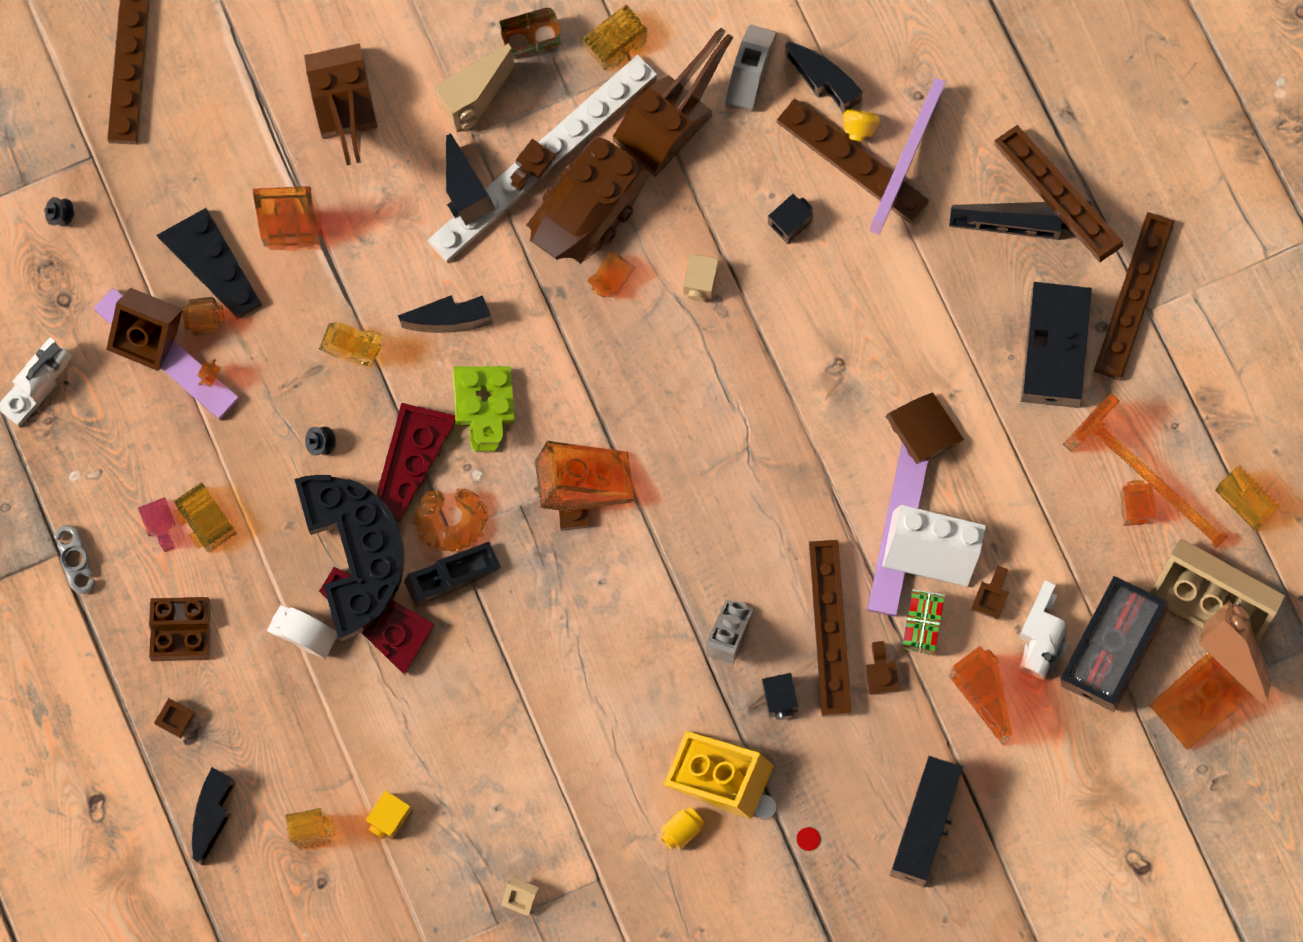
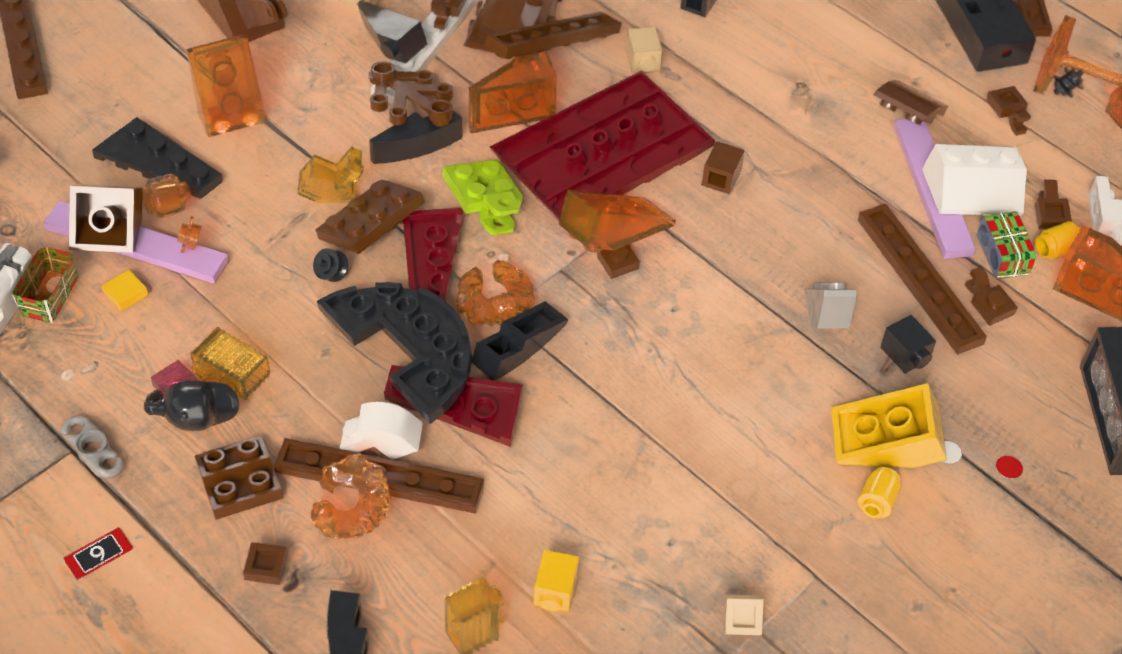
camera: 30 degrees left, 25 degrees down
(54, 659) = (98, 553): none -> sticker
(62, 382) = (45, 260): none -> piece
(142, 405) = (125, 290): none -> yellow tile
(157, 552) = (194, 404): none -> black hair
(270, 699) = (372, 504): none -> clear orange piece
(290, 665) = (404, 479): none -> reddish brown tile
(372, 398) = (370, 216): none -> reddish brown plate
(451, 269) = (385, 75): none -> reddish brown plant
(554, 301) = (514, 94): none -> clear orange slope
(591, 383) = (603, 143): none -> dark red piece
(611, 246) = (552, 34): none -> reddish brown plate
(611, 275) = (565, 66): clear orange bracket -> none
(711, 445) = (723, 167): none -> reddish brown brick
(977, 632) = (1056, 240): none -> yellow brick
(1021, 459) = (1011, 104): none -> reddish brown plate
(1094, 453) = (1068, 82): none -> black wheel

